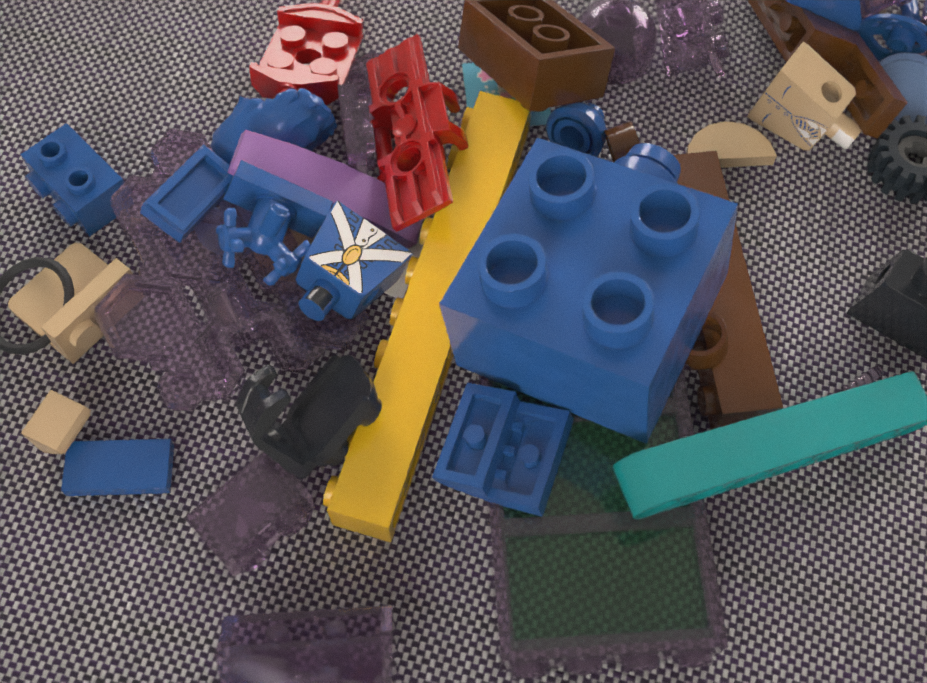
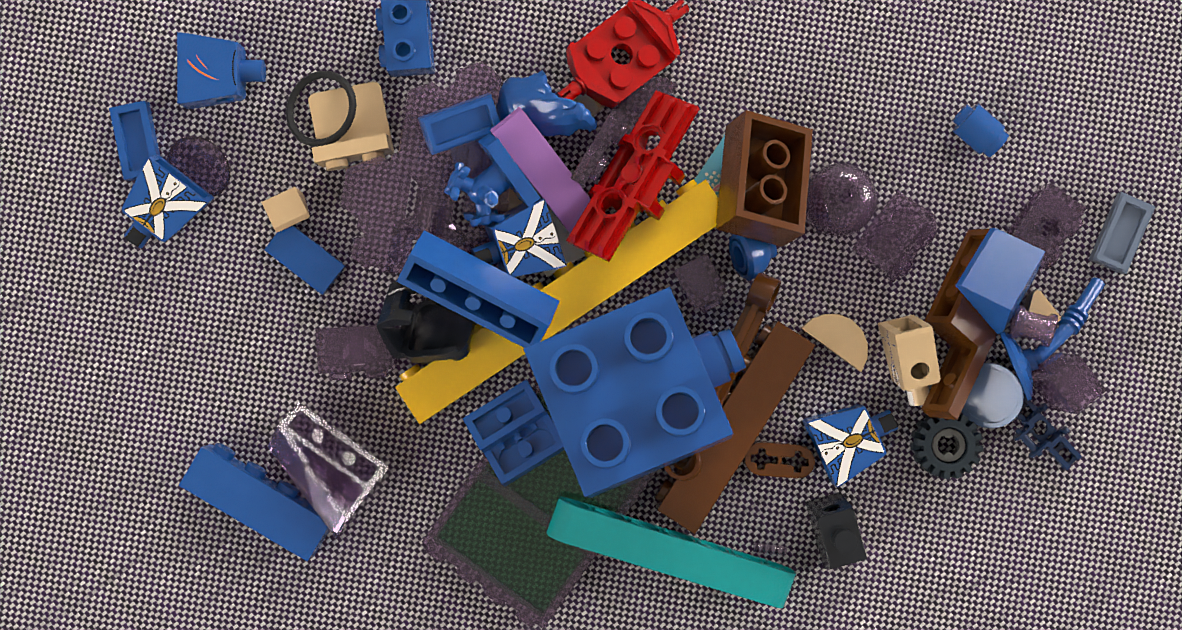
camera: 40 degrees right, 25 degrees up
(337, 320) = (478, 291): none -> blue brick
(790, 297) = (777, 468): none -> reddish brown beam
(828, 220) = (849, 440): none -> torso

